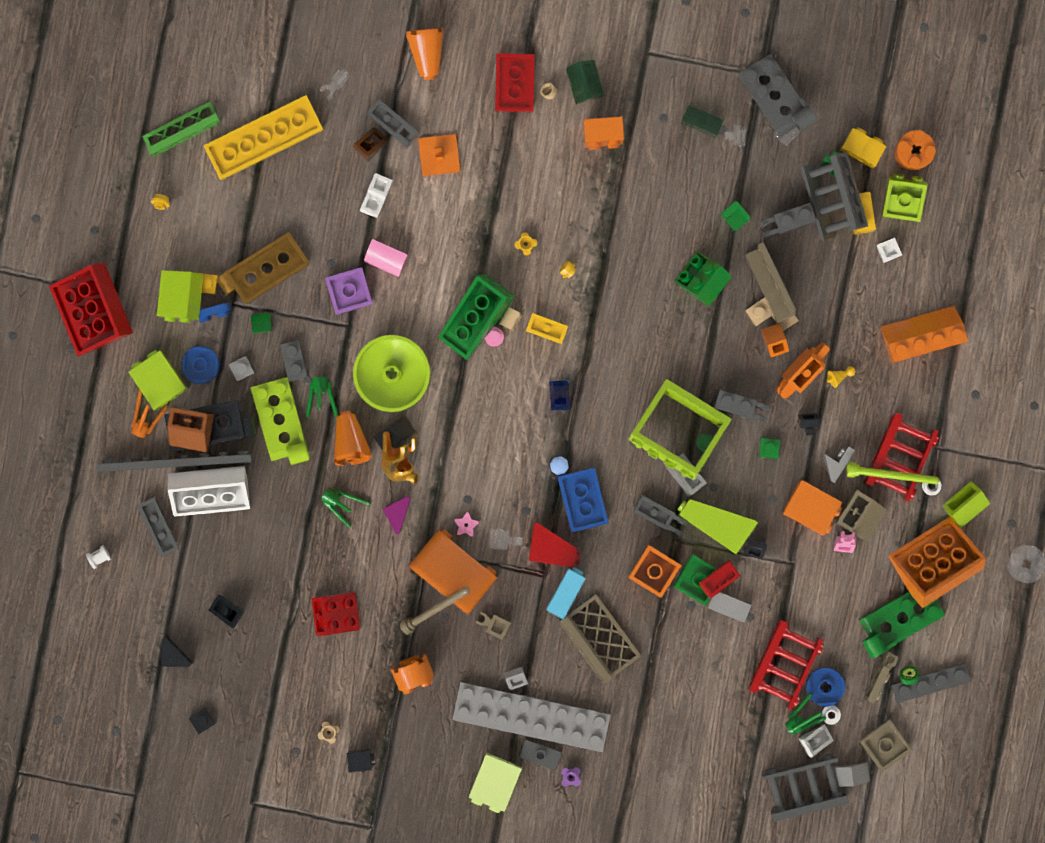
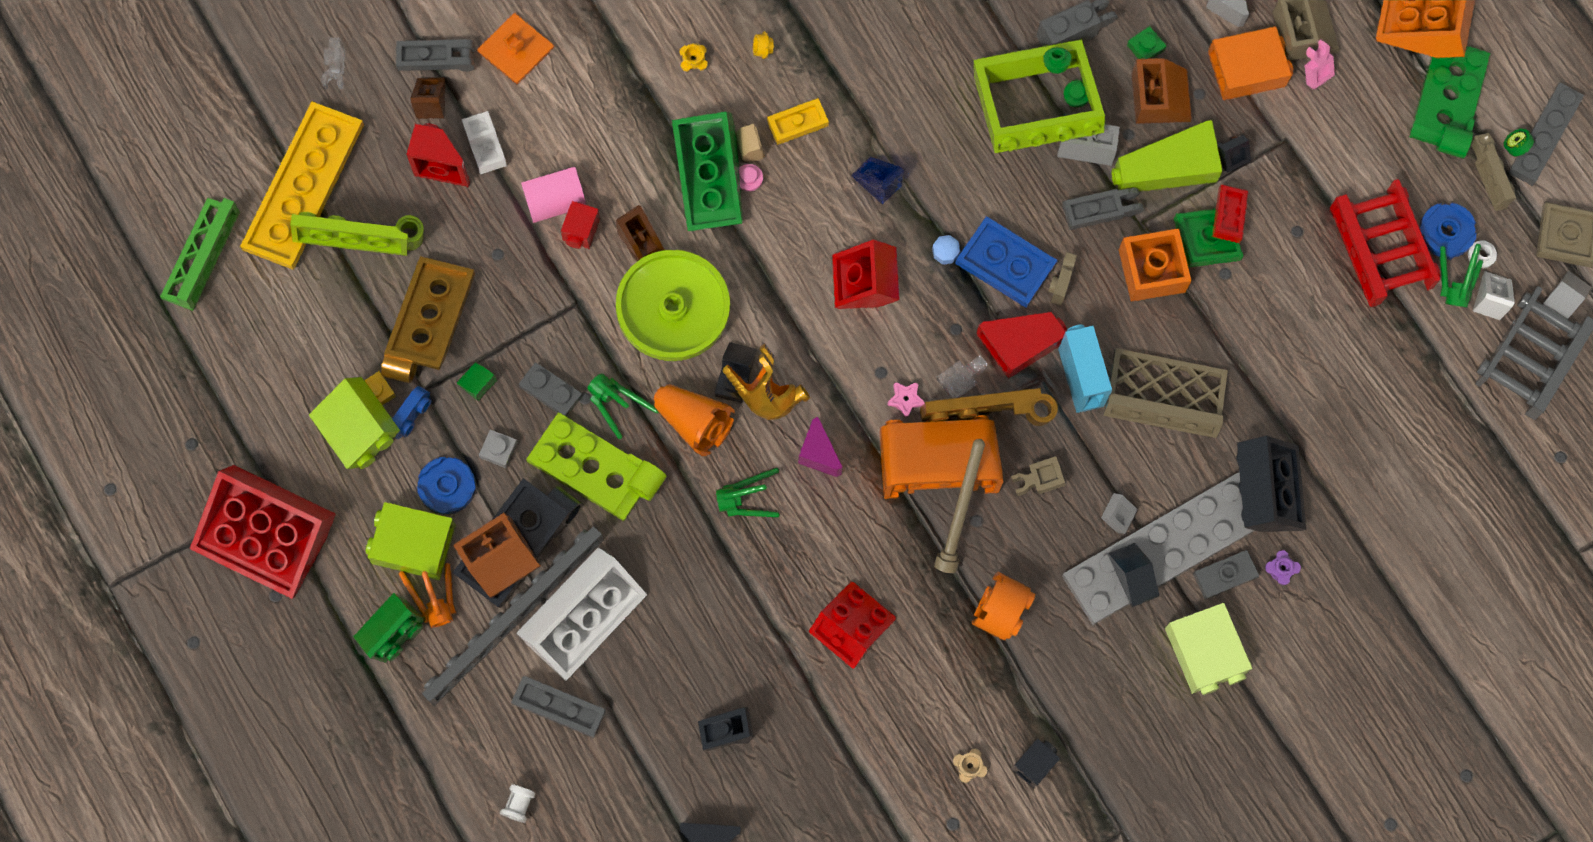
camera: 45 degrees left, 15 degrees down
(111, 416) = (389, 629): none -> green slope
(160, 201) = (242, 346): yellow plate -> none
(279, 209) = (339, 233): none -> lime hinge
(343, 184) = (435, 157): none -> red slope
(348, 291) = (544, 263): medium lavender plate -> none
(383, 287) = (580, 225): none -> red brick
(408, 321) = (638, 233): none -> reddish brown slope
(487, 559) = (967, 407): none -> pearl gold hinge
(492, 715) = (1135, 574): none -> black slope
(504, 444) = (866, 276): none -> red slope
(597, 536) = (1060, 284): none -> dark tan plate
(600, 734) = (1271, 485): none -> black slope
(706, 425) = (1057, 60): none -> green plate
(730, 606) = (1268, 235): light grey slope -> none
(749, 483) = (1160, 92): none -> dark orange slope

